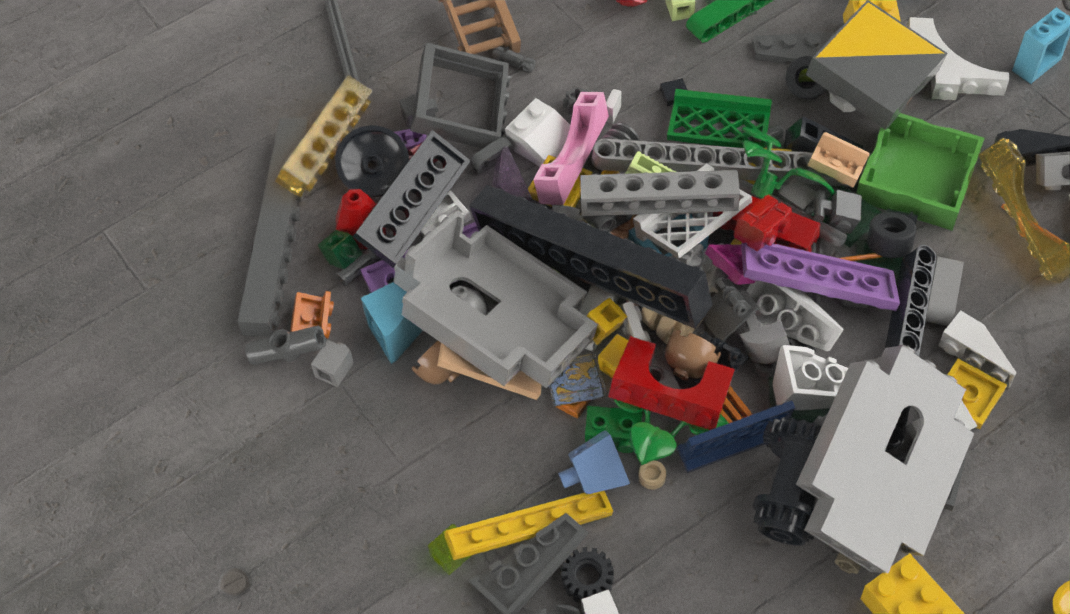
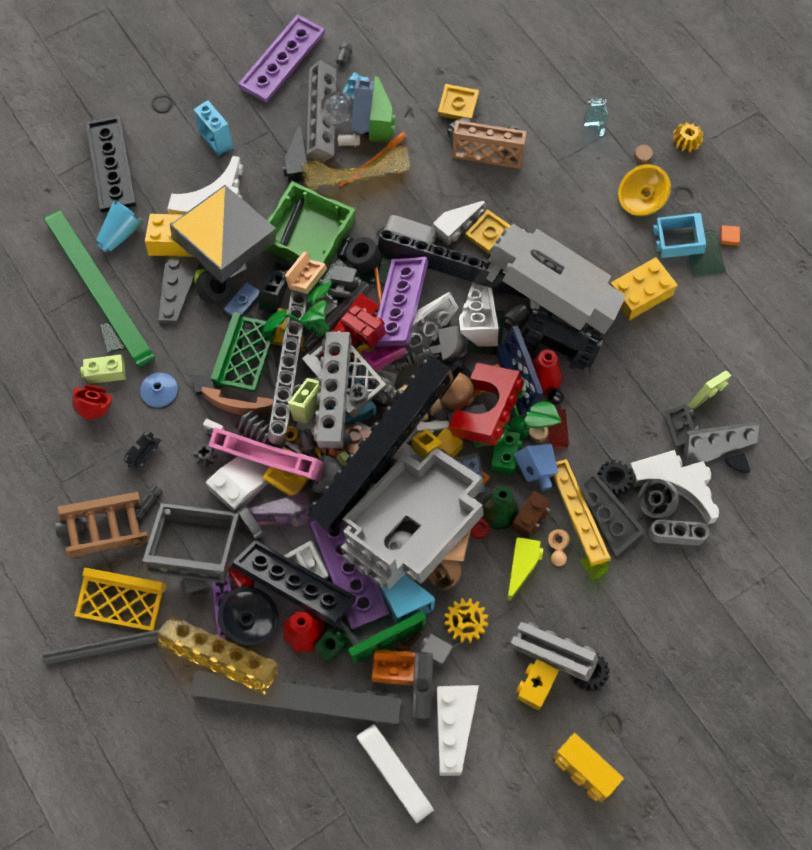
camera: 90 degrees left, 10 degrees up
(168, 539) = (587, 768): none -> yellow brick
(182, 330) = (395, 773): none -> white beam
(234, 387) = (454, 721): none -> white wedge
(286, 482) = (535, 696): none -> yellow brick
(296, 535) = (599, 681): none -> black tyre
(324, 496) = (555, 651): none -> light grey brick
(338, 332) = (406, 647): none -> reddish brown hand
(345, 303) = (387, 637): none -> green tile
(372, 394) = (472, 625): none -> yellow gear
(417, 32) = (122, 581): none -> yellow fence
(455, 459) = (525, 559): none -> neon yellow slope
(486, 503) = (558, 557): none -> light nougat plate
(502, 407) = (480, 529): none -> red tile
(522, 463) = (531, 514): none -> reddish brown brick
(530, 425) = (500, 508): none -> dark green cone
(568, 39) = (137, 457): none -> black hinge
(651, 106) = (215, 397): none -> nougat slope
(661, 52) = (159, 397): none -> medium blue dish
(661, 225) = (354, 388): none -> light grey bush
(662, 499) = (559, 433): none -> clear red plate
(708, 491) = (555, 397): none -> black hinge
(744, 473) = (548, 370): none -> red cone
(789, 112) = (243, 300): none -> medium blue plate
(926, 154) = (292, 221): none -> black bar

